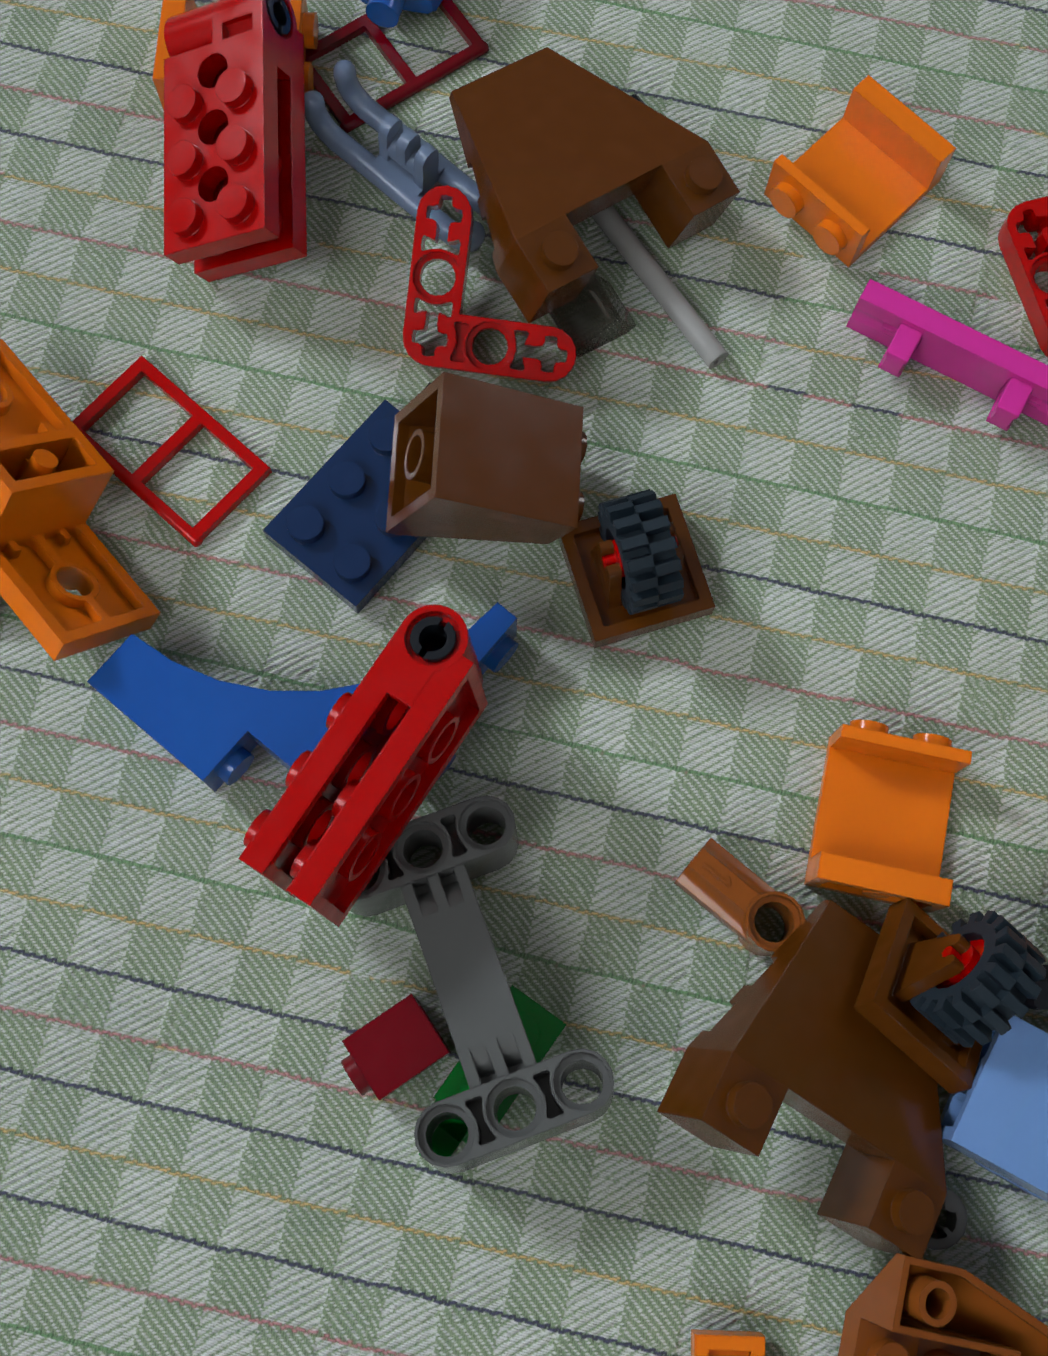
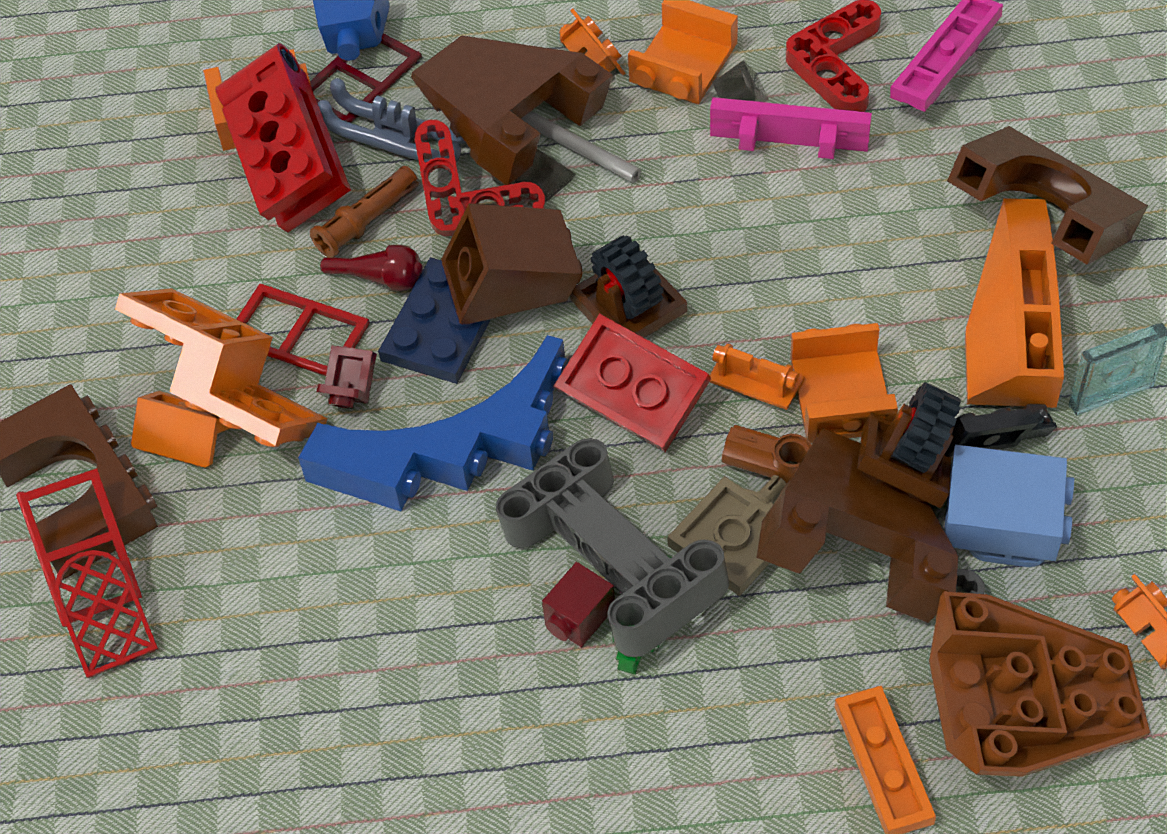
camera: 10 degrees left, 20 degrees down
(205, 561) = (348, 377): none -> dark red bracket
(298, 299) = (352, 220): none -> dark orange pin
(329, 400) = (395, 267): none -> dark red piece
(371, 765) = (504, 427): red hinge -> none
(592, 716) = (632, 382): none -> red plate
(646, 1005) = (734, 521): none -> dark tan plate
(722, 101) = (583, 37): none -> orange hinge
(768, 760) = (755, 376): none -> orange hinge
(916, 262) = (740, 84): none -> clear smoke slope

